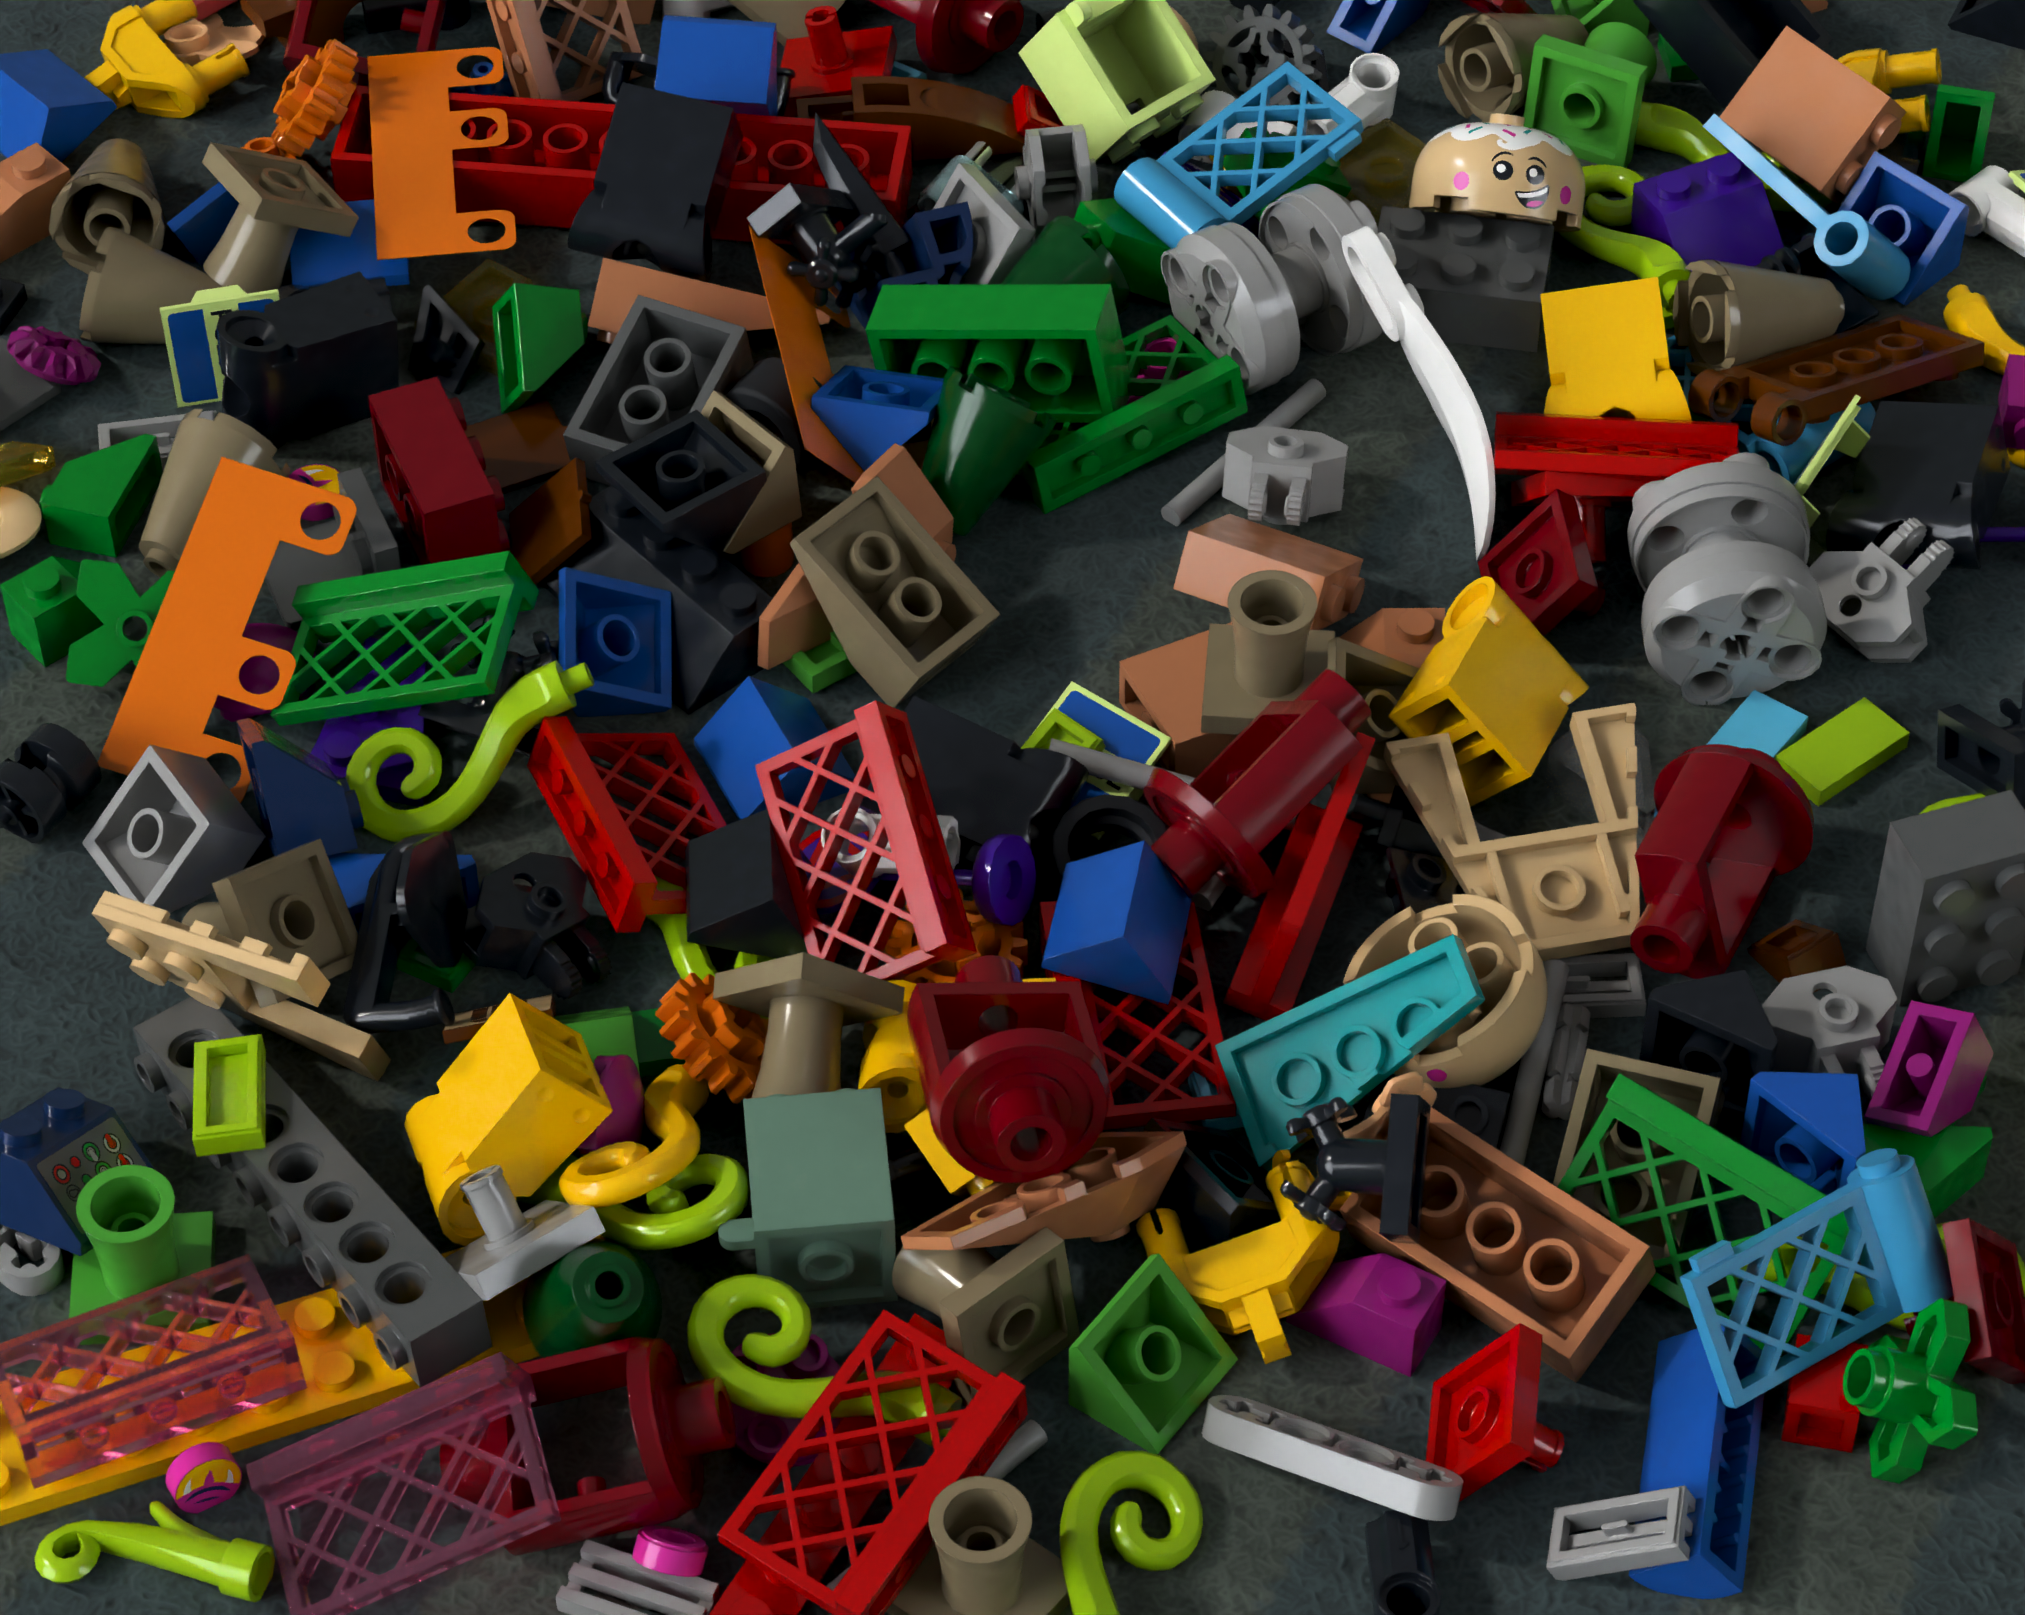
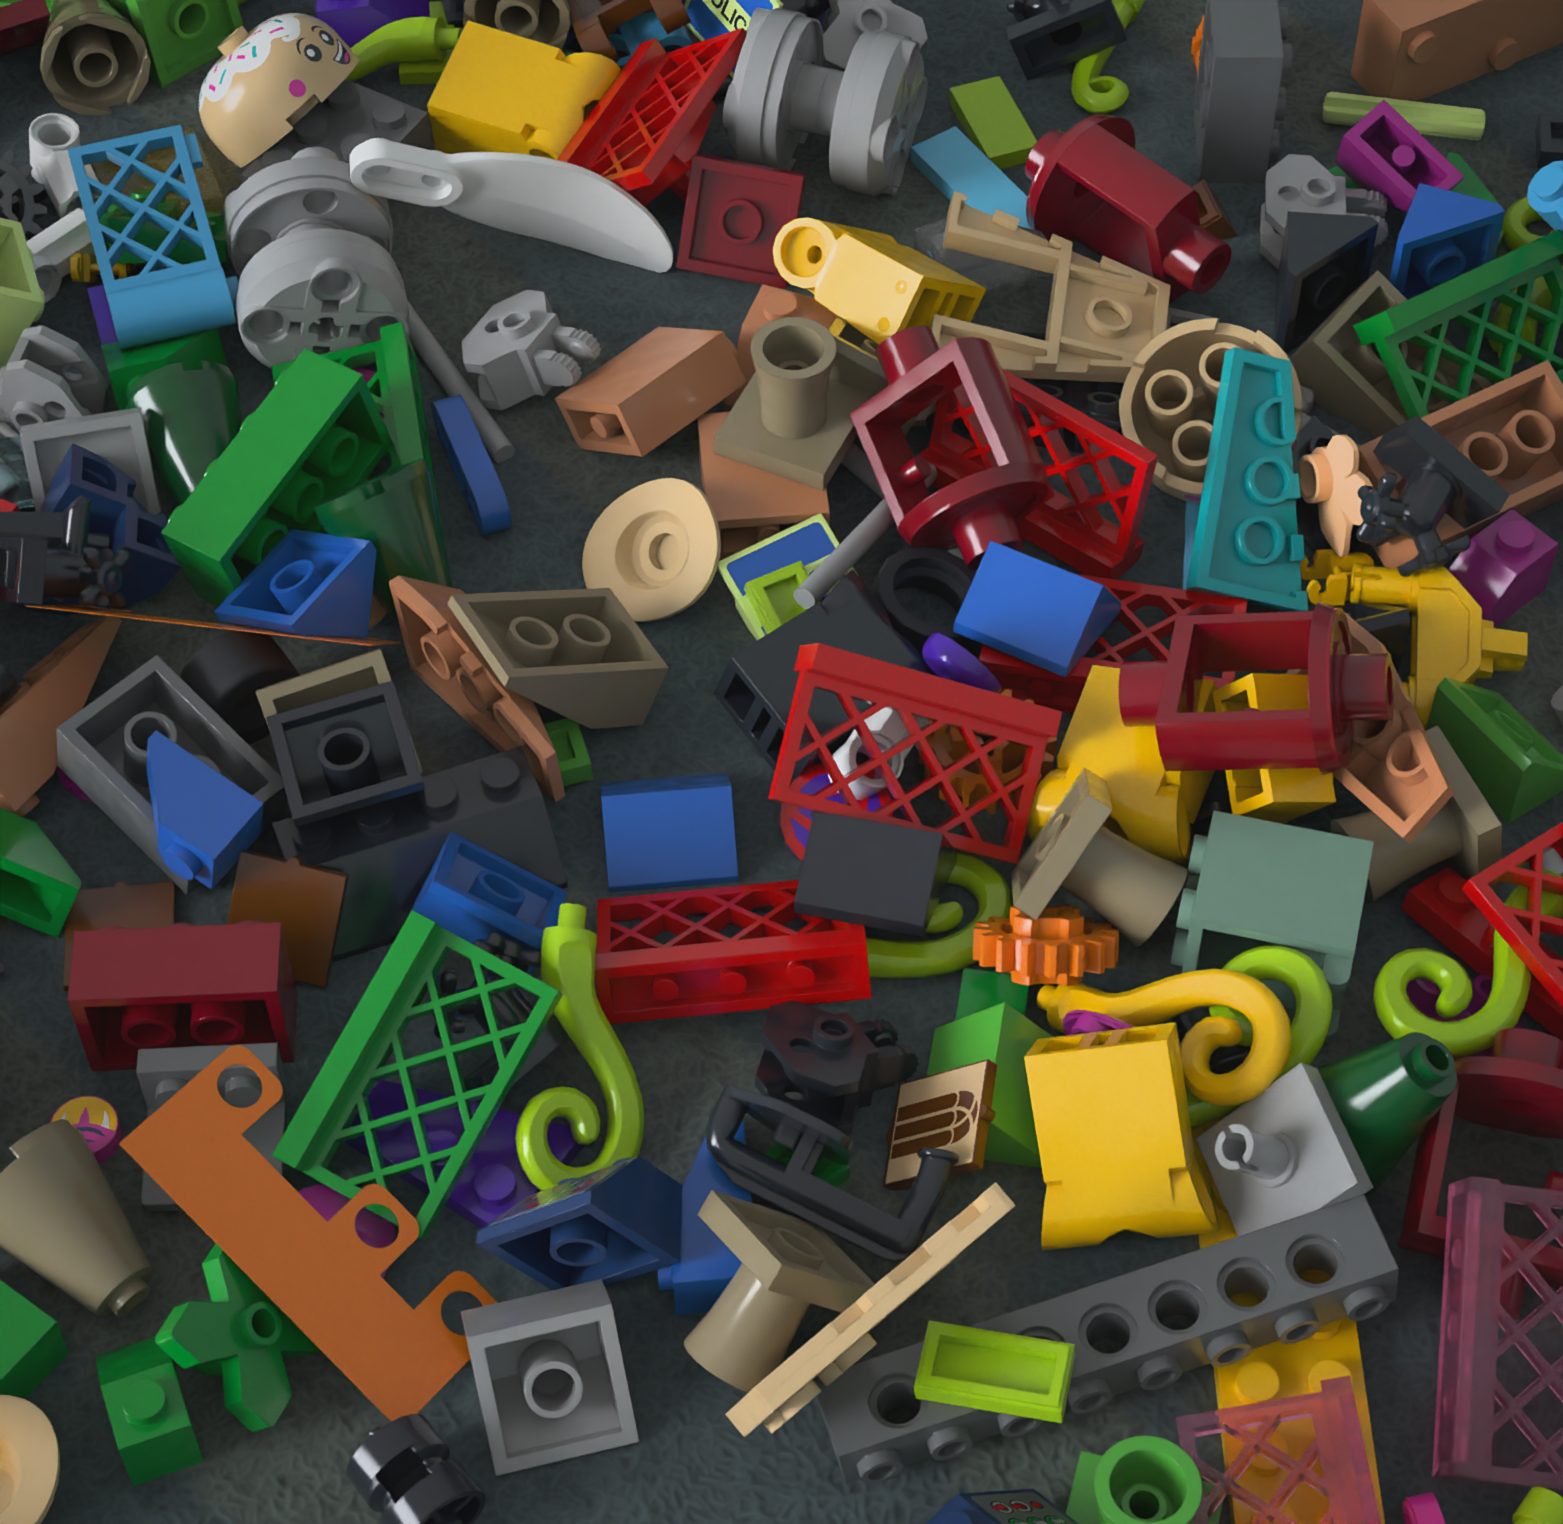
camera: 70 degrees left, 5 degrees up
(588, 405) = (198, 813): none -> blue slope
(1078, 644) = (654, 548): none -> tan hat
(1130, 490) = (471, 465): none -> blue beam

